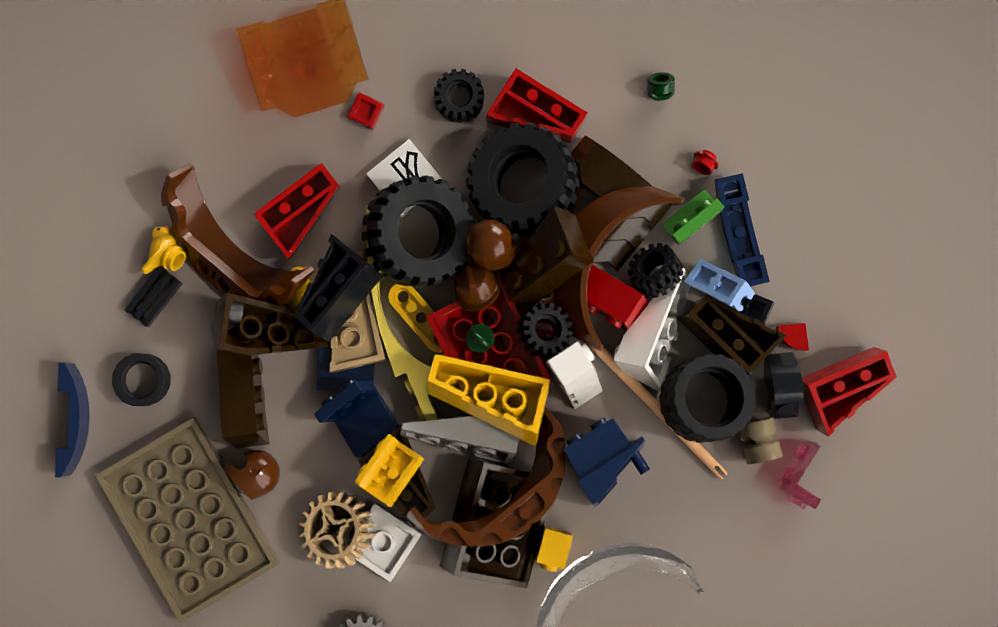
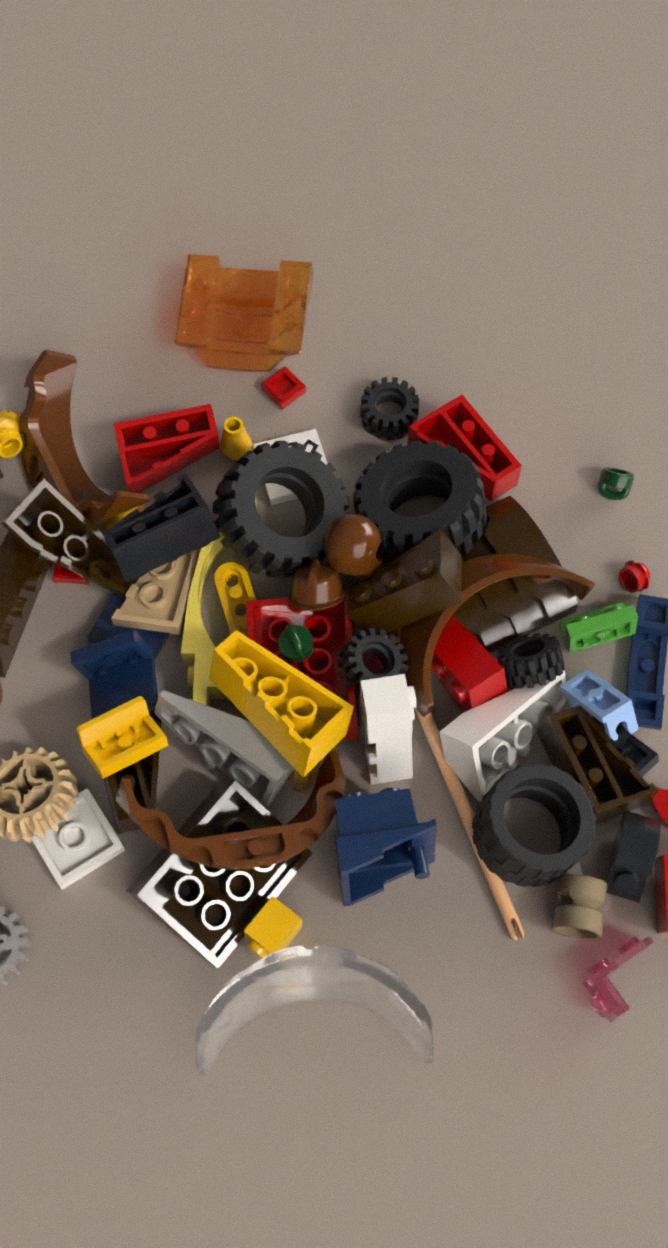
camera: 20 degrees right, 20 degrees down
(354, 183) = (235, 439): none -> yellow cone

